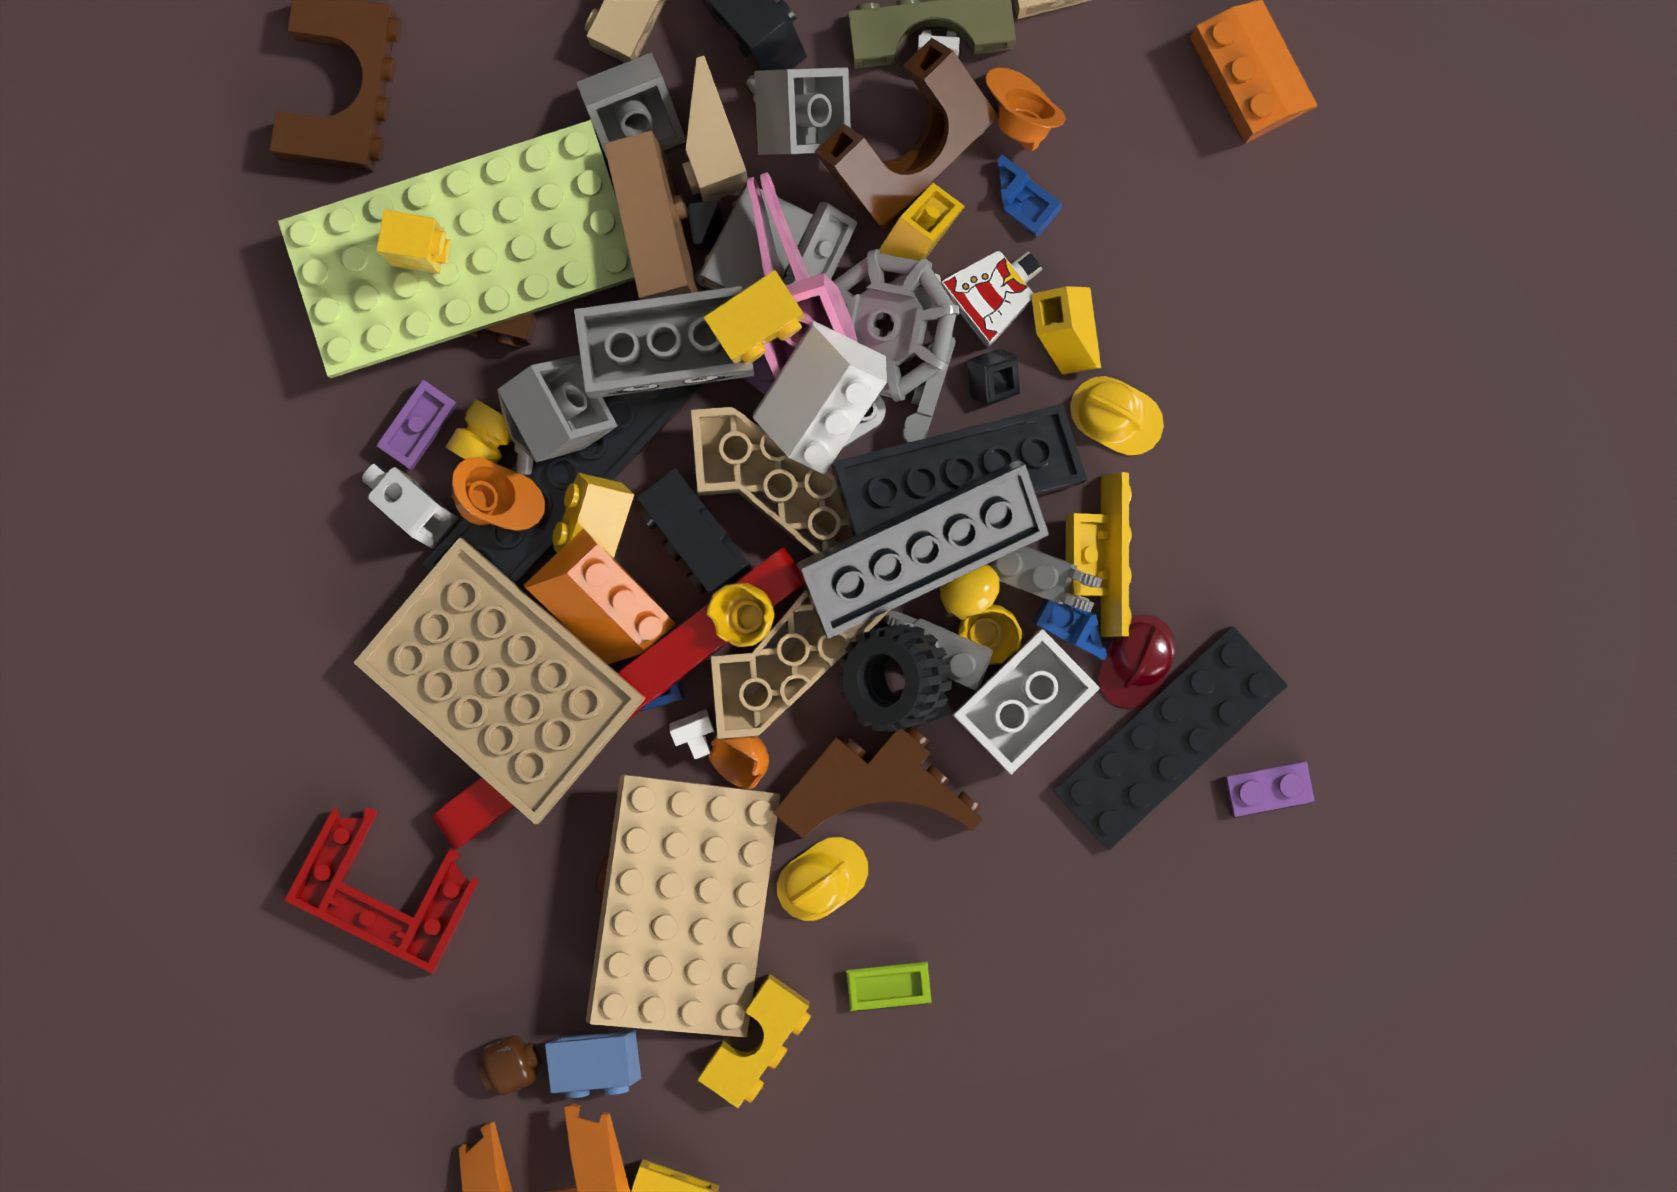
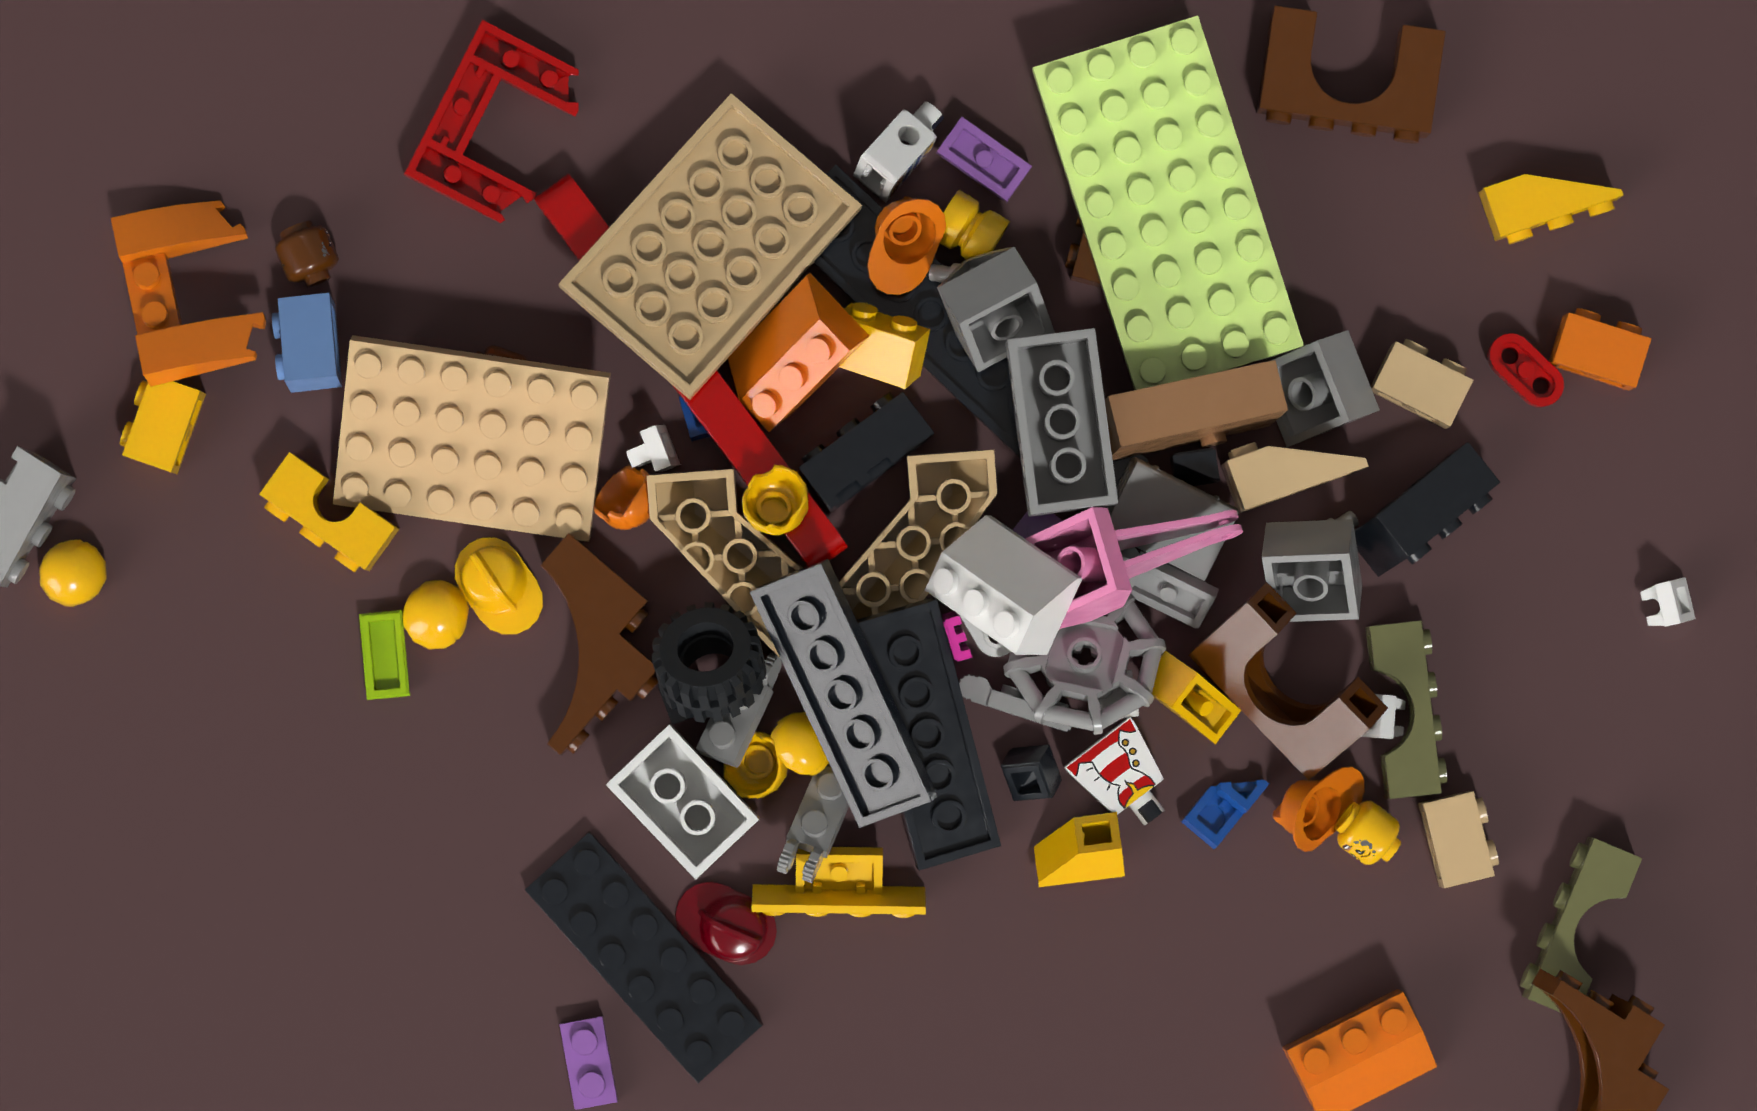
camera: 90 degrees right, 0 degrees up
(413, 241) = (1168, 160): yellow brick -> none
(755, 319) = (1080, 517): yellow brick -> none
(850, 938) = (435, 614): none -> yellow hair
(867, 443) = (956, 636): none -> dark pink tile
(1046, 61) = (1368, 832): none -> yellow head
(1072, 626) = (763, 853): blue slope -> none
(1117, 415) = (989, 905): yellow piece -> none

